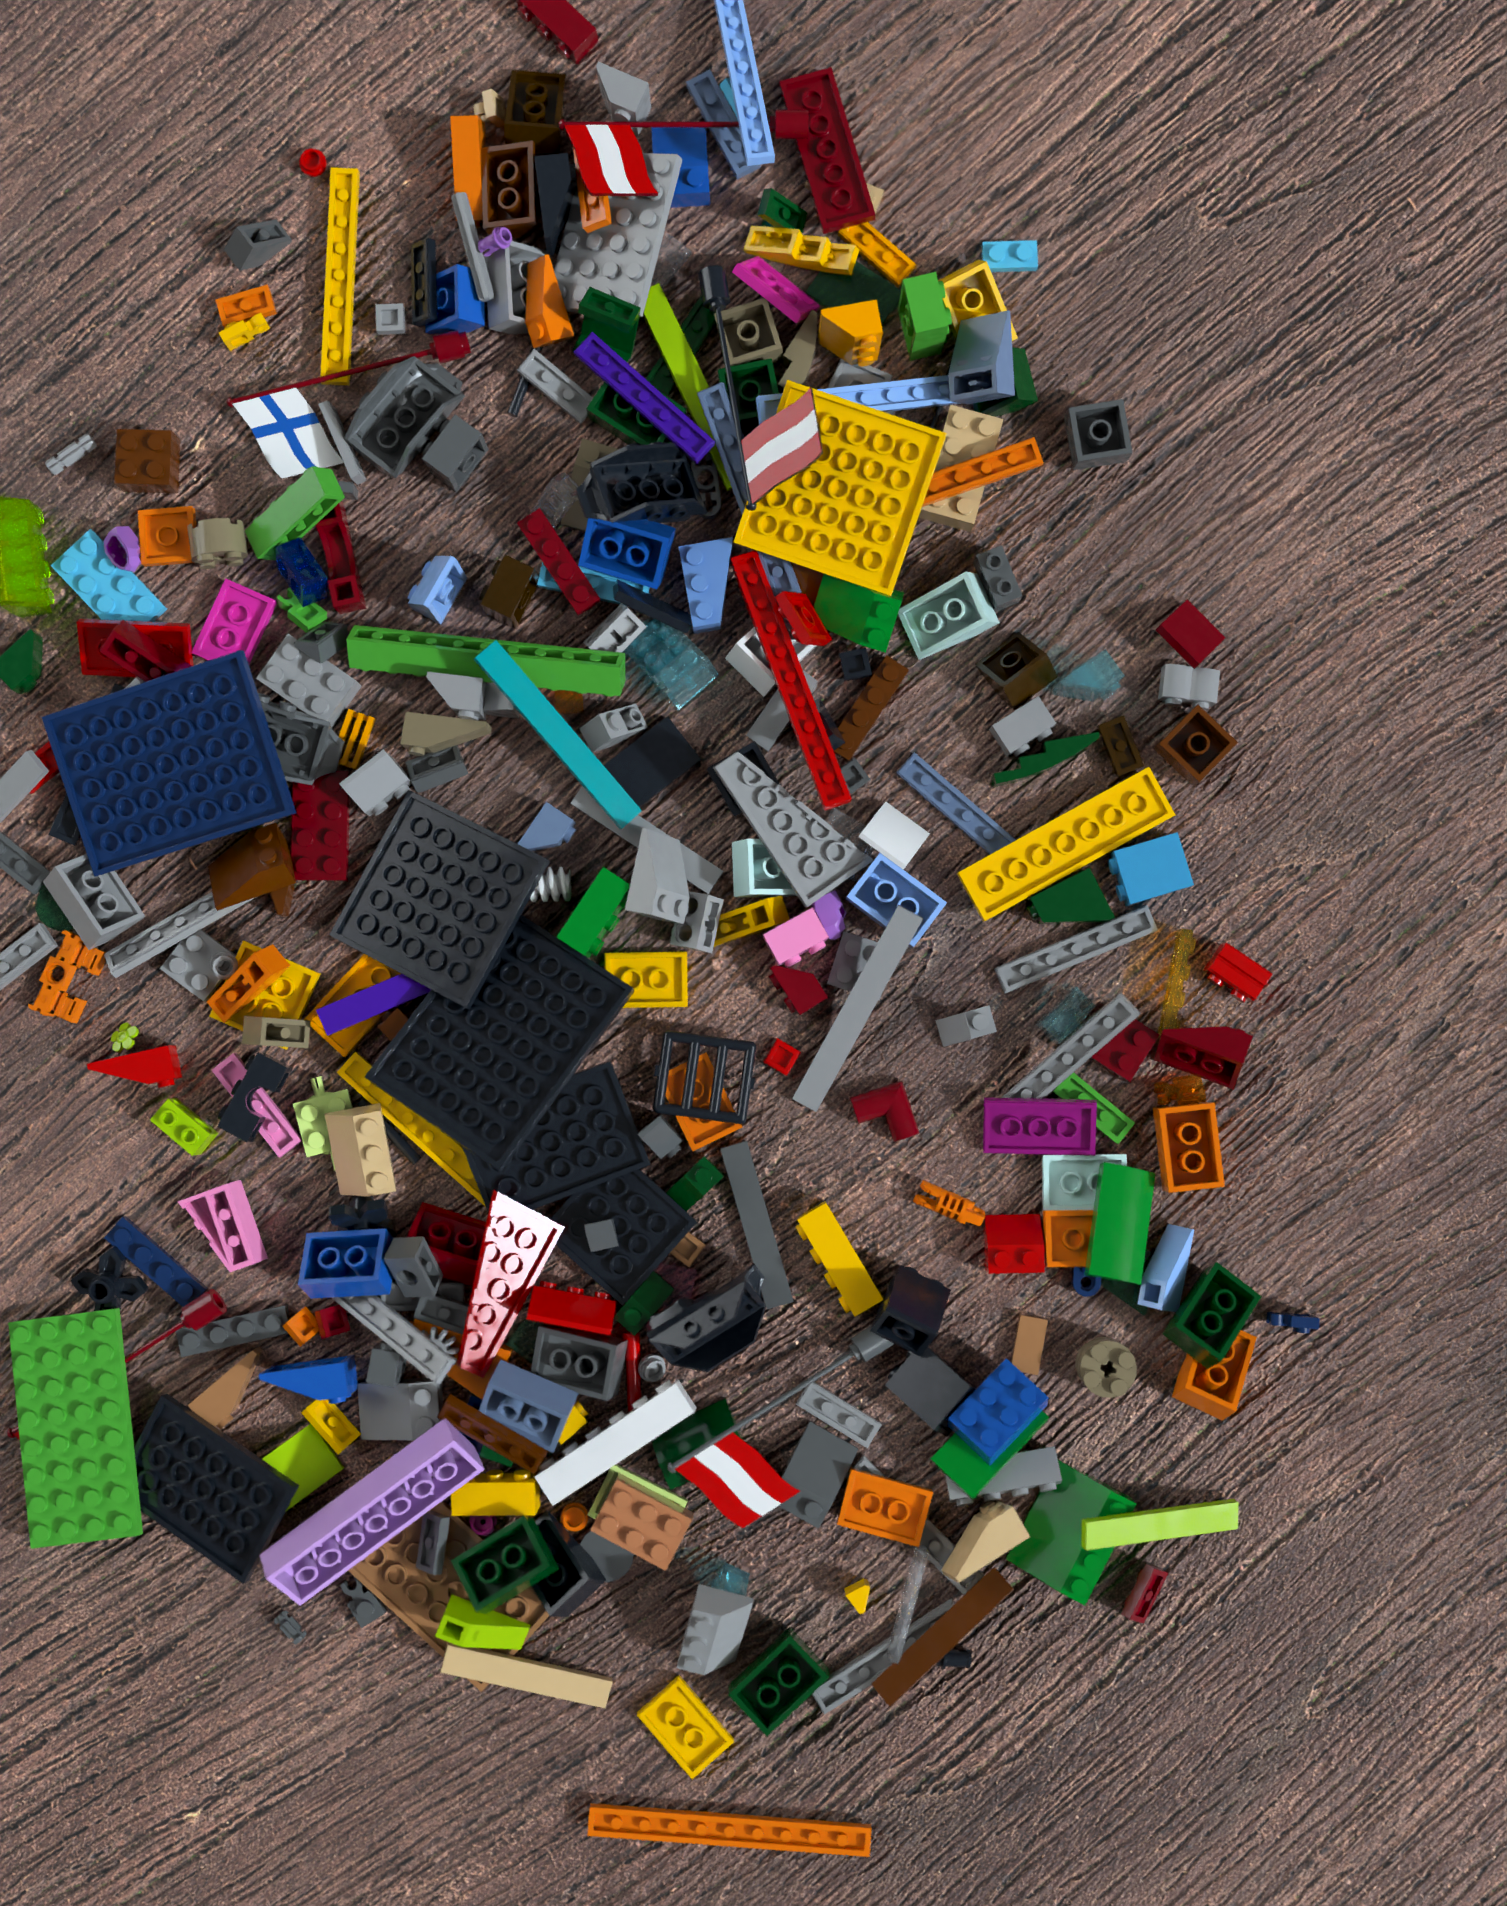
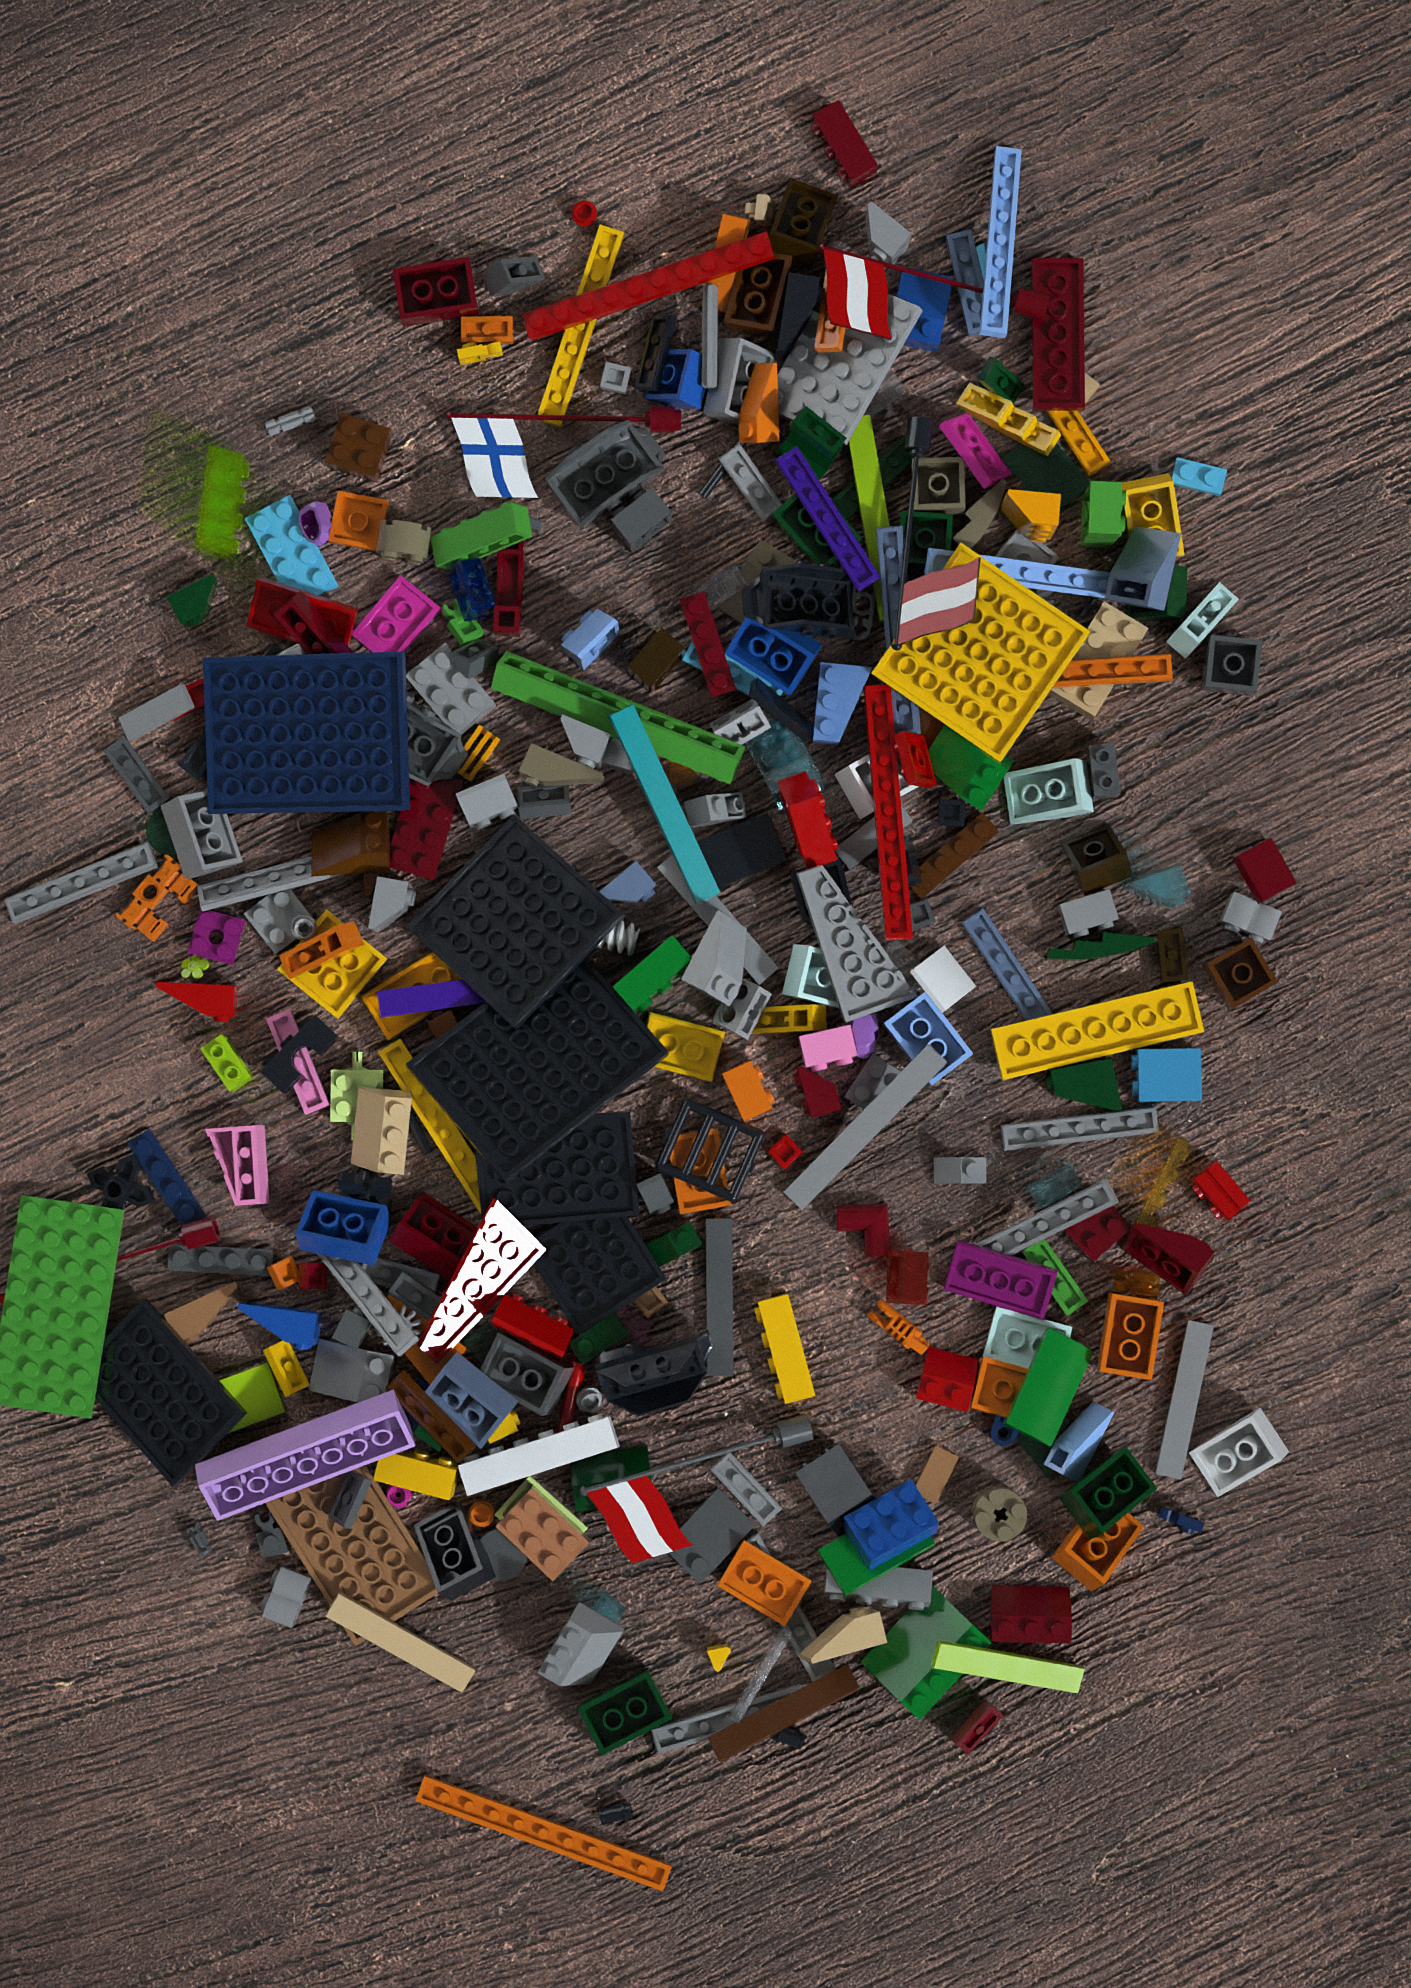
camera: 15 degrees right, 0 degrees up
(125, 989) = (208, 922): none -> magenta piece
(181, 280) = (435, 291): none -> dark red brick
(276, 1032) = (334, 1001): dark tan slope -> none
(305, 915) = (390, 902): none -> light grey slope
(345, 450) = (540, 475): light grey tile -> none
(396, 212) = (648, 286): none -> red plate
(396, 1660) = (286, 1596): none -> light grey brick
(413, 1267) = (401, 1247): dark grey brick -> none
(468, 1628) = (372, 1586): lime slope -> none
(499, 239) = (736, 338): medium lavender pin -> none
(504, 1564) = (410, 1535): dark green brick -> none
(601, 1235) = (577, 1266): dark grey slope -> none
(685, 1727) = (529, 1730): yellow tile -> none
(710, 709) = (808, 819): none -> red brick
(726, 1005) = (748, 1091): none -> orange brick
(798, 1788) = (616, 1813): none -> black pin
(911, 1310) = (837, 1412): black slope -> none
(943, 1151) = (907, 1277): none -> clear red brick
(1054, 399) = (1202, 620): none -> light aqua slope
(1167, 1461) = (1030, 1614): none -> dark red slope
(1260, 1196) = (1184, 1399): none -> light grey tile
(1333, 1234) = (1239, 1452): none -> white slope

